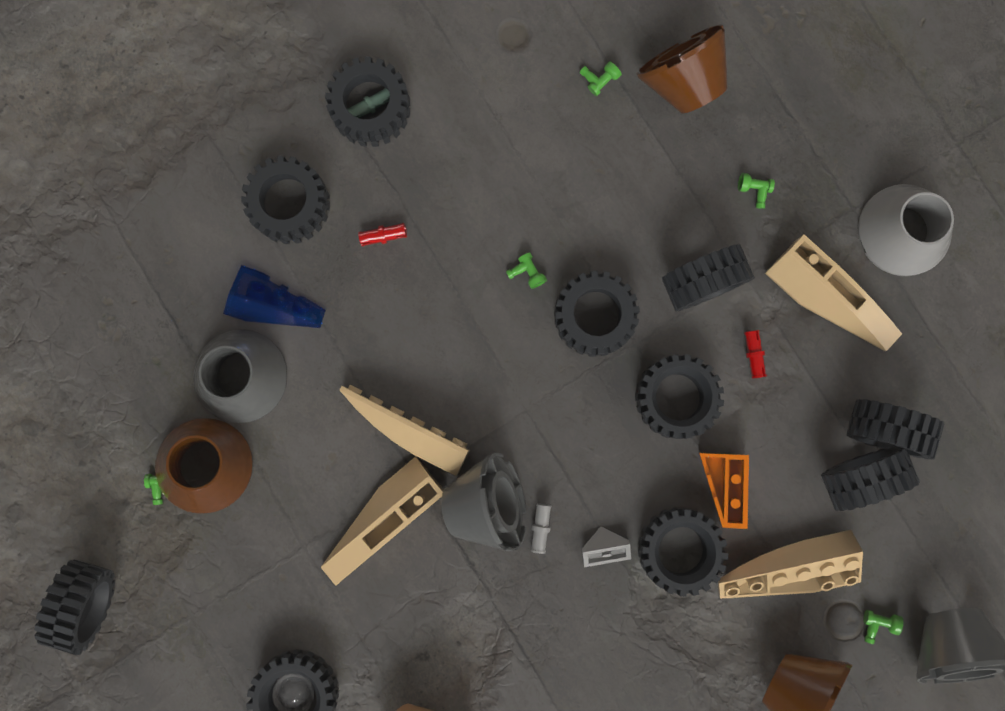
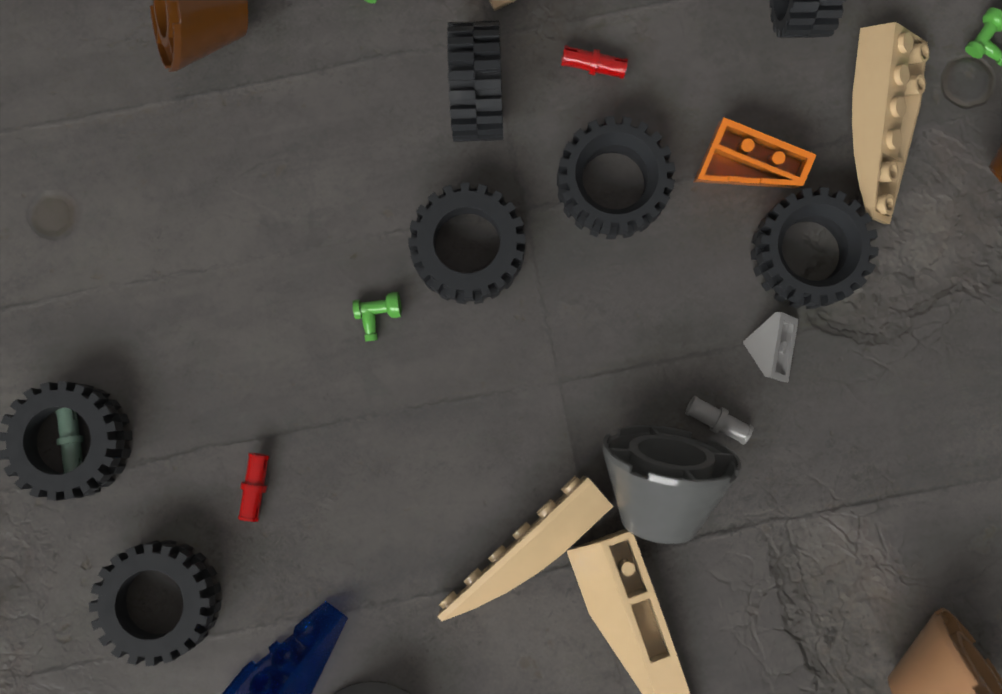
camera: 70 degrees left, 0 degrees up
(596, 84) = (154, 105): bright green piece -> none

